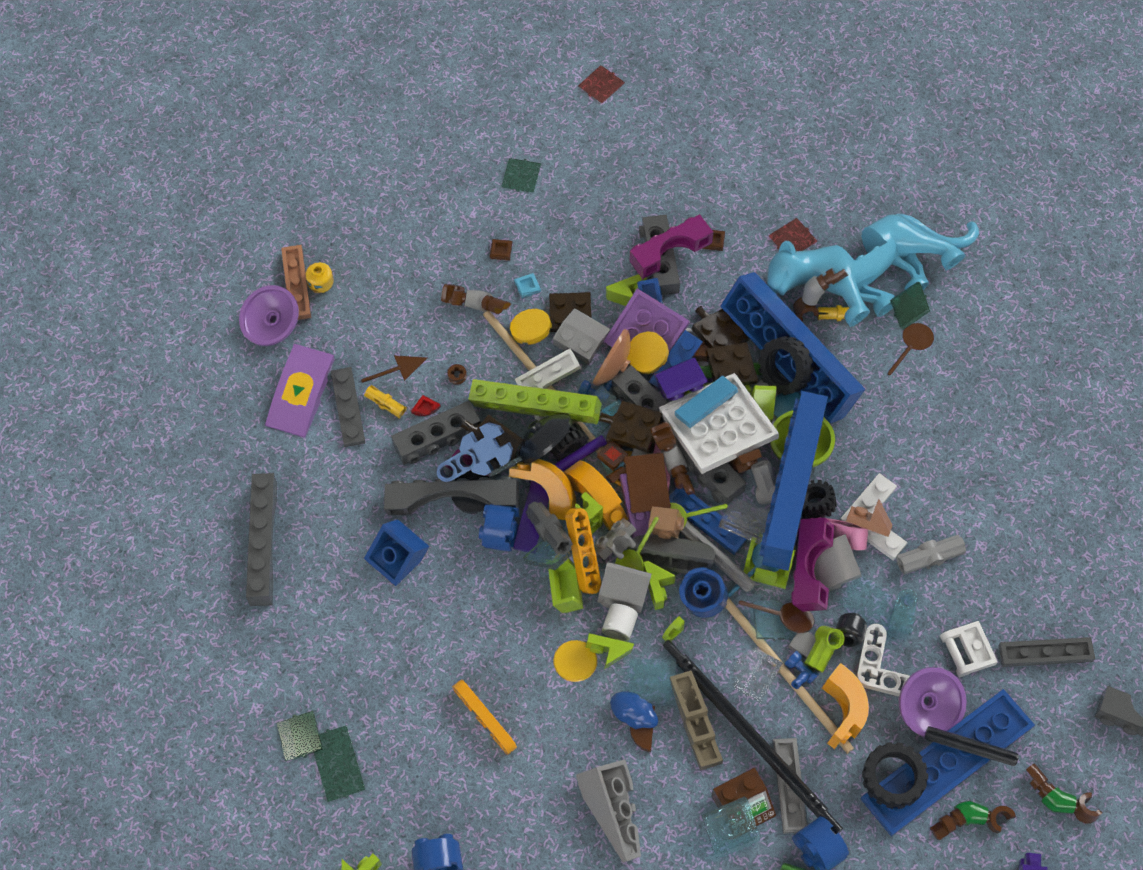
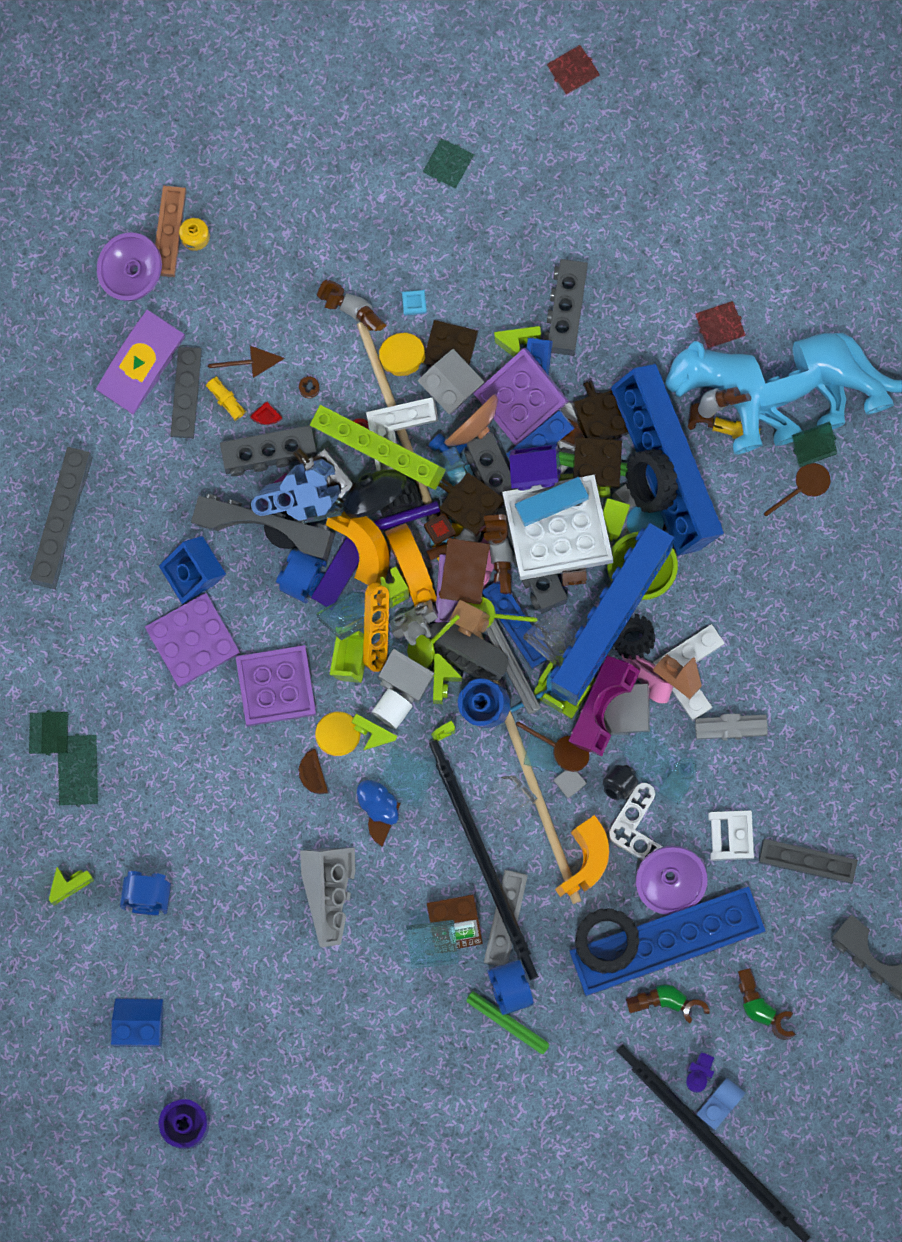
camera: 20 degrees right, 15 degrees up
(414, 614) = (192, 640): none -> medium lavender plate
(484, 716) = (230, 766): light orange beam -> none
(501, 249) = (398, 251): reddish brown tile -> none
(504, 633) = (275, 685): none -> medium lavender plate
(549, 528) = (348, 593): dark grey piece -> none
(563, 704) = (311, 773): none -> reddish brown tile
(648, 352) = (513, 423): yellow tile -> none
(691, 234) = (604, 297): magenta arch -> none
(695, 720) = (435, 829): dark tan slope -> none
(717, 241) = (633, 303): reddish brown tile -> none
(765, 481) = (586, 600): light grey piece -> none
(806, 673) = (561, 814): blue piece -> none
(822, 648) = (584, 795): lime piece -> none
(971, 746) = (693, 934): black axle -> none

